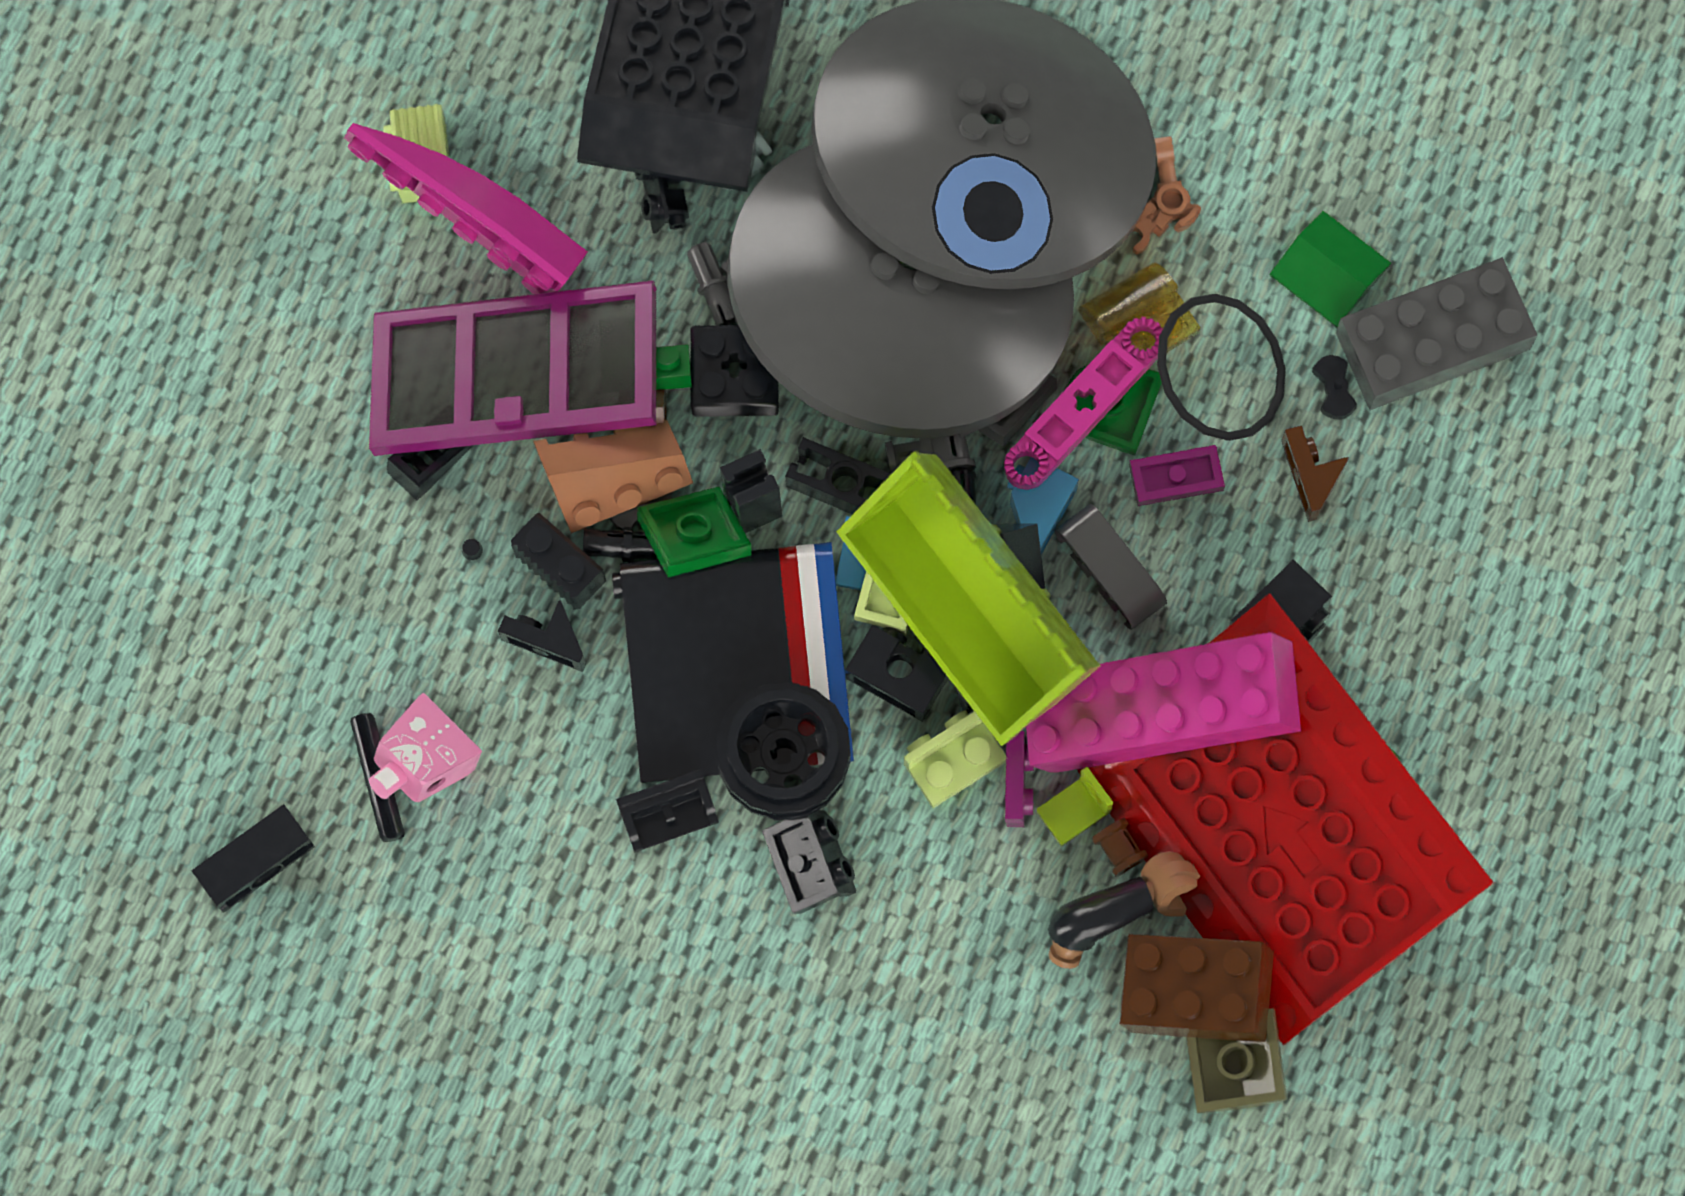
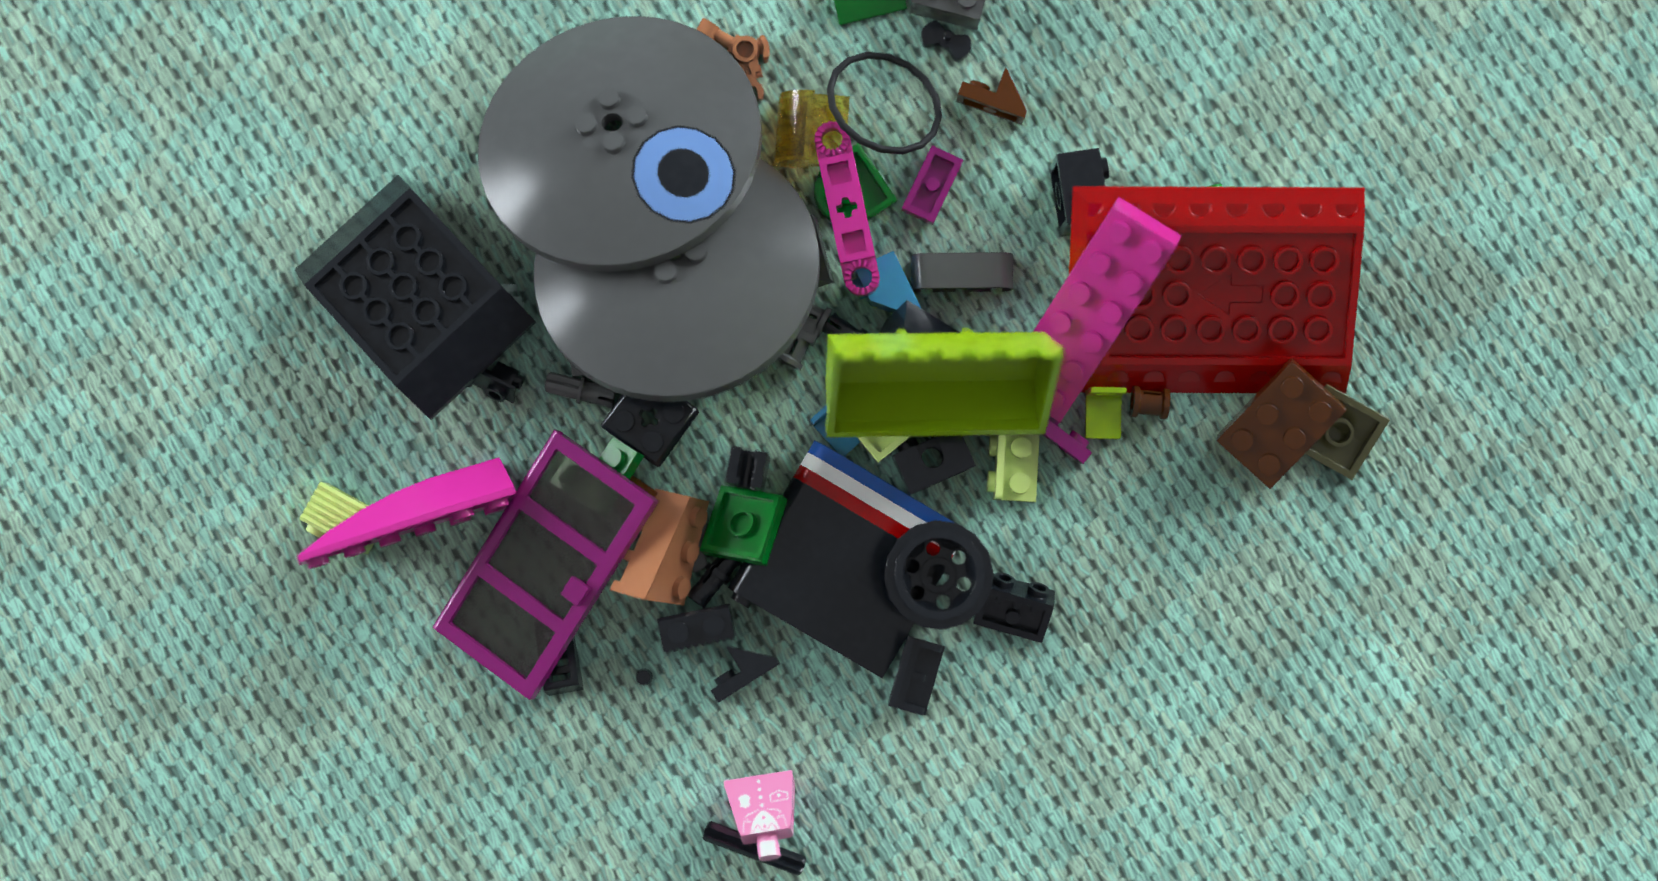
camera: 55 degrees left, 10 degrees up
(837, 466) = (765, 397): black piece -> none
(1096, 915) = (1191, 439): piece -> none

